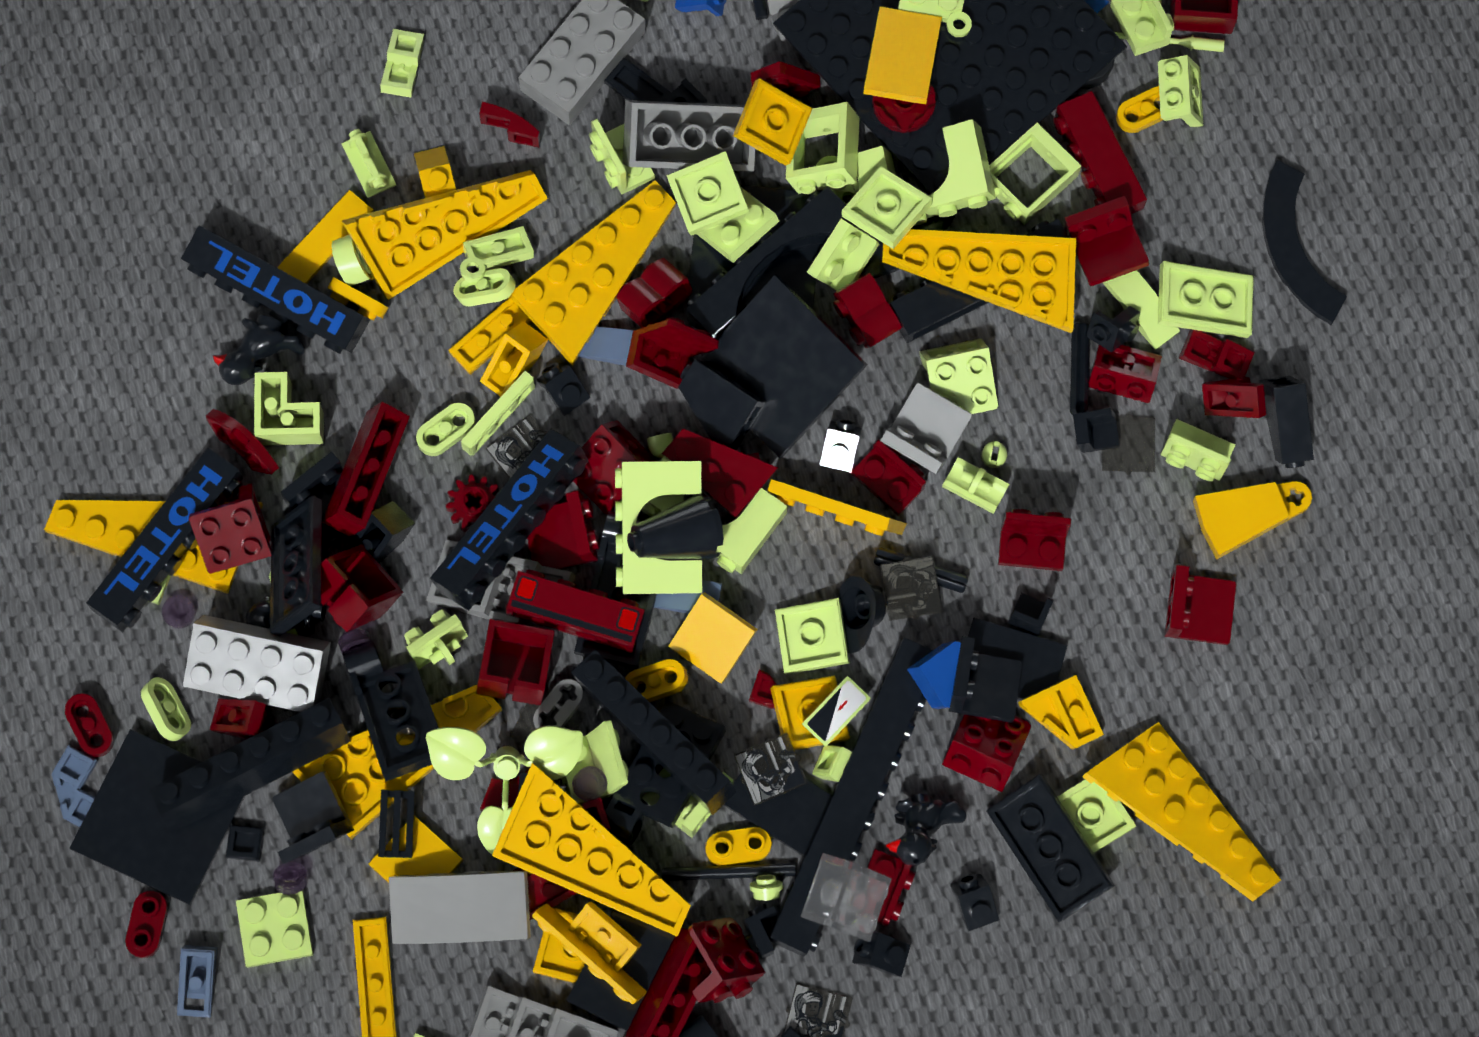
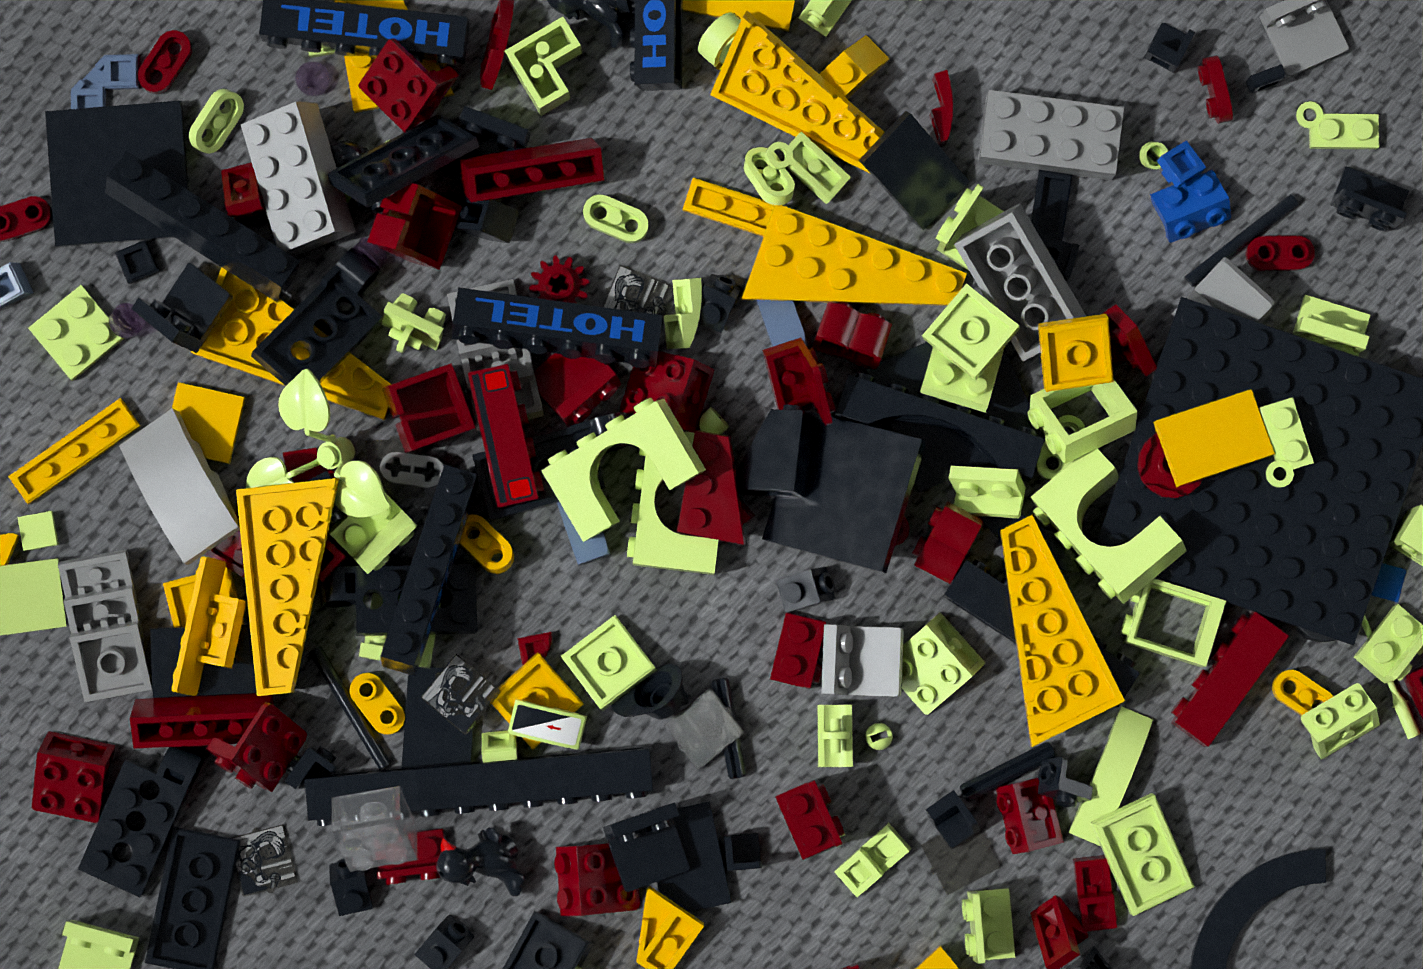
camera: 60 degrees right, 10 degrees up
(368, 306) = (693, 79): yellow plate -> none
(397, 795) = (198, 400): black tile -> none
(498, 413) = (656, 258): yellowish green tile -> none
(514, 355) = (717, 242): yellow slope -> none
(548, 171) = (914, 170): none -> black tile
(556, 413) = (682, 325): none -> yellowish green slope
(589, 783) = (354, 539): tile -> none
(679, 532) = (622, 489): black cone -> none
(712, 637) = (554, 573): yellow tile -> none
(766, 887) = (352, 750): yellowish green plate -> none
(844, 512) = (740, 619): yellow wing -> none
(886, 207) = (1051, 506): yellowish green plate -> none
(937, 673) = (629, 797): blue slope -> none
(1093, 514) = (872, 860): none -> yellowish green slope
(1106, 241) = (1141, 732): dark red bracket -> none

